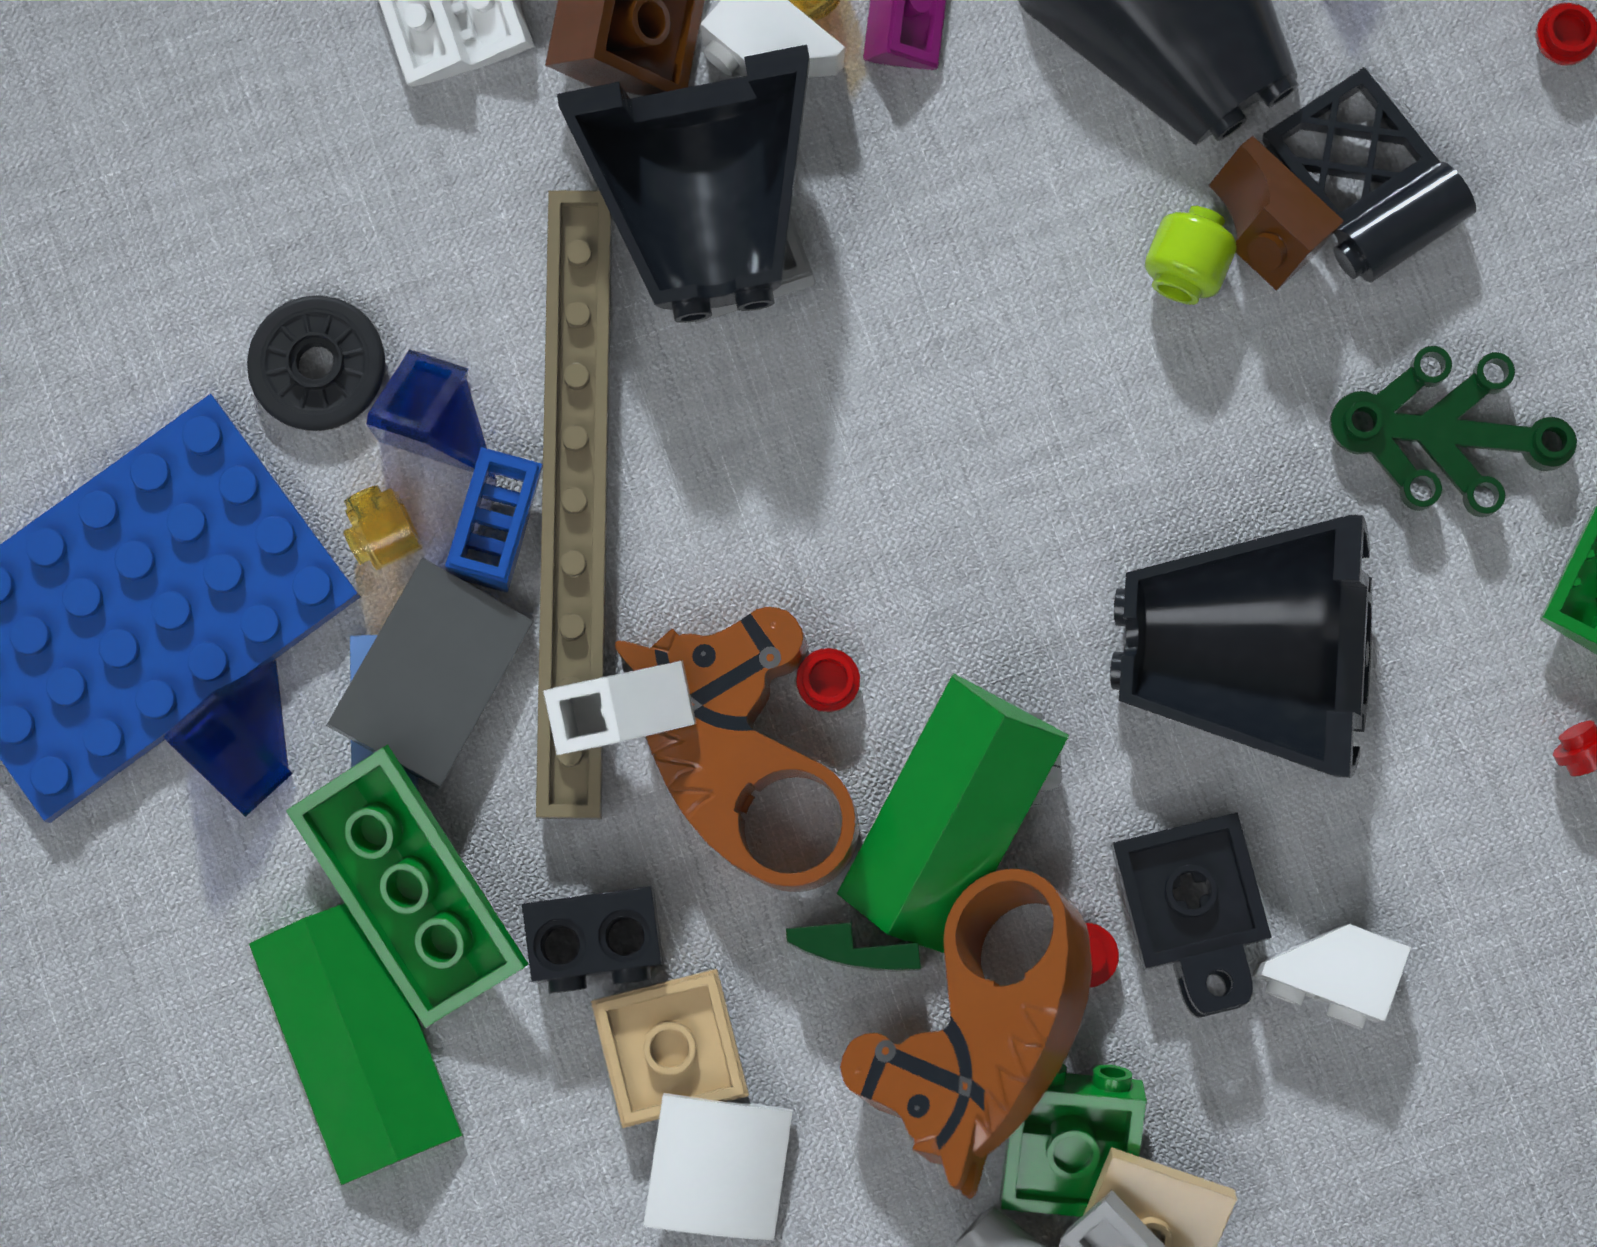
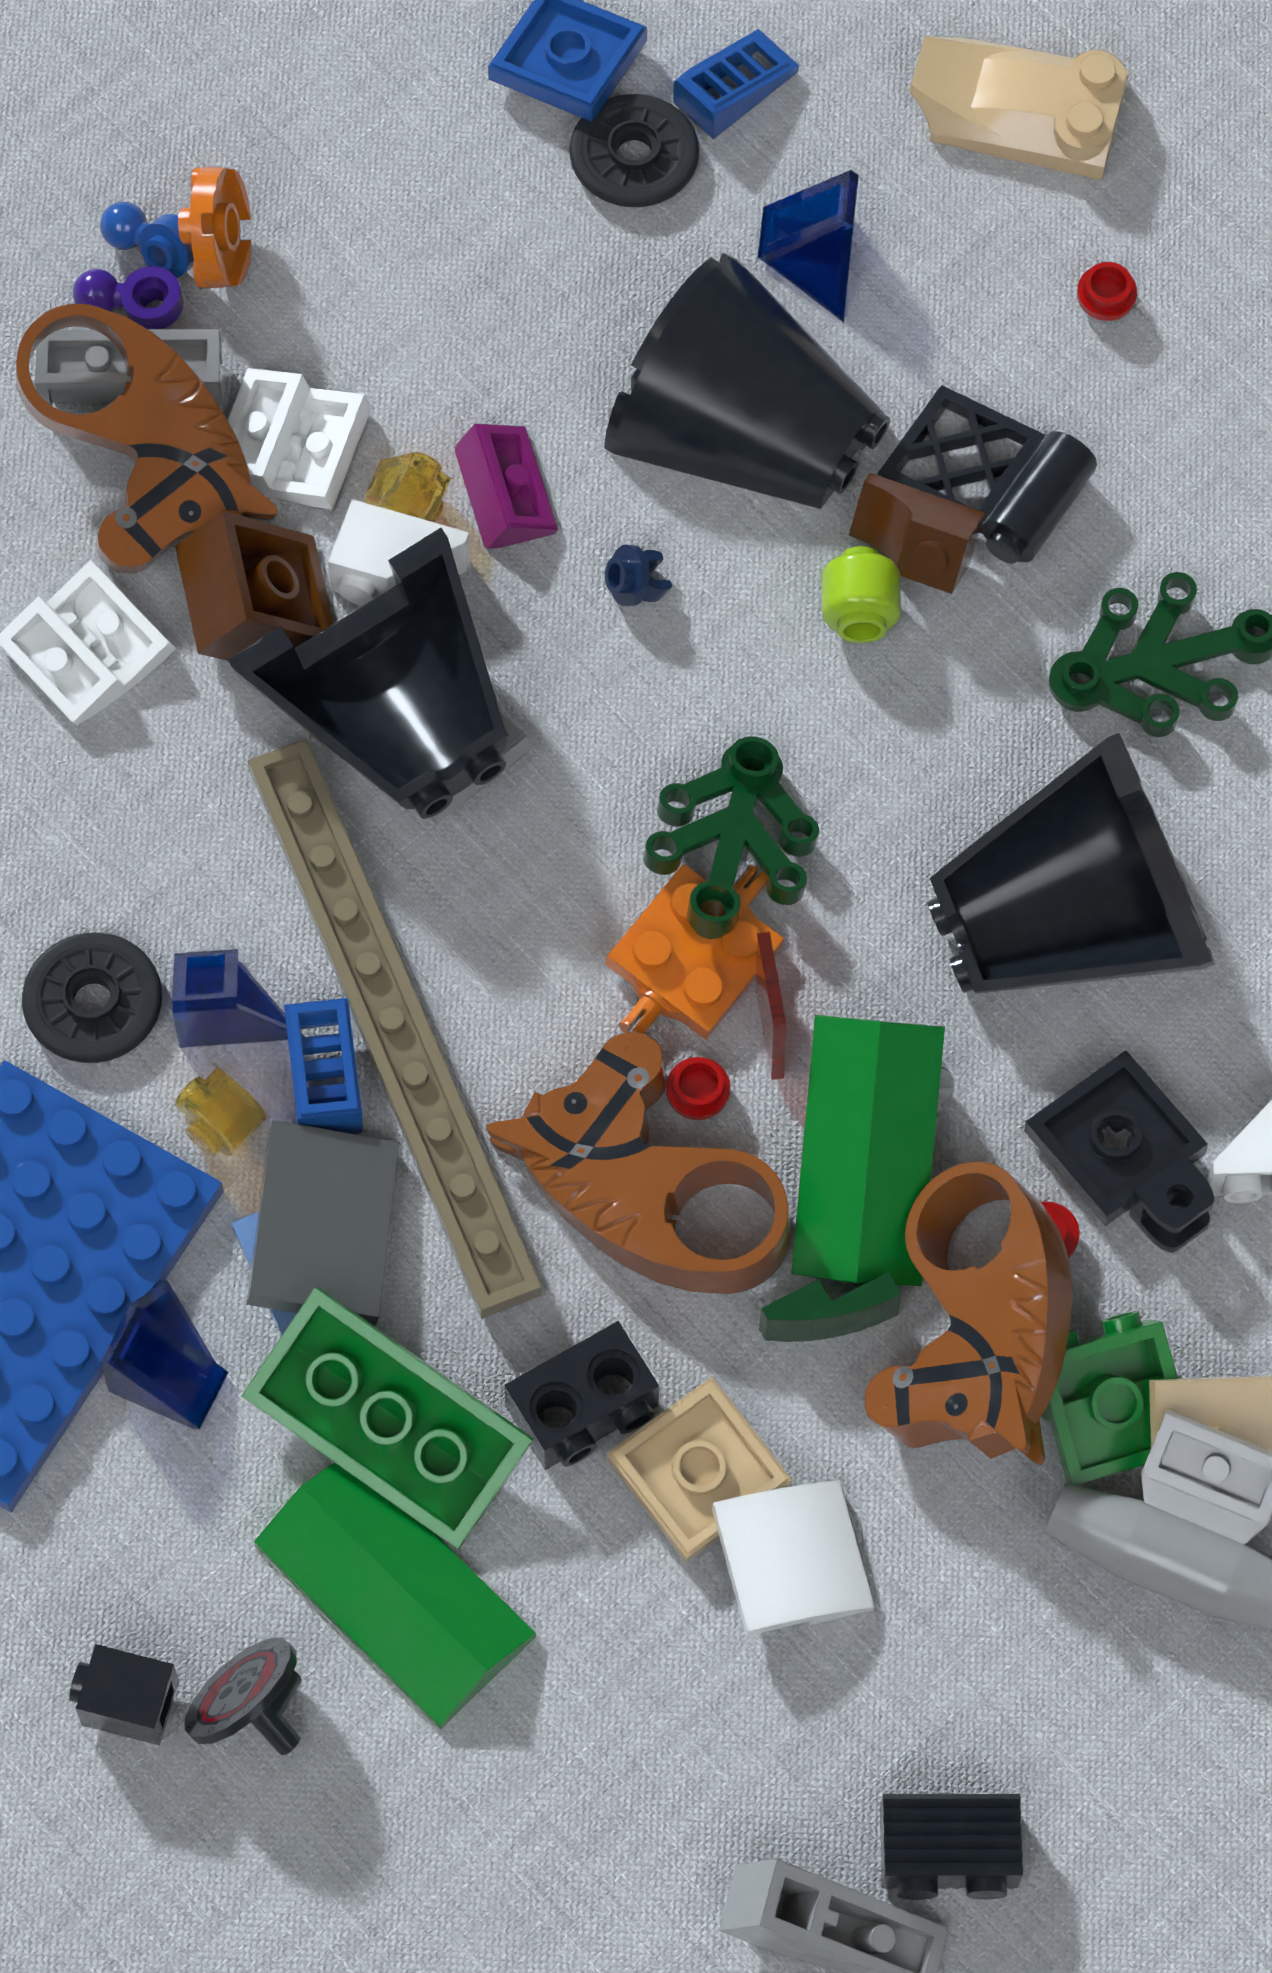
camera: 25 degrees left, 15 degrees down
(69, 1046) = (124, 1694): none -> black brick
(174, 1092) = (245, 1691): none -> shield
(619, 707) = (519, 1168): white slope -> none
(882, 544) = (681, 971): none -> orange plate
(922, 637) = (770, 1006): none -> clear red piece
(968, 443) = (734, 829): none -> dark green plant
(981, 145) = (629, 576): none -> dark blue plate

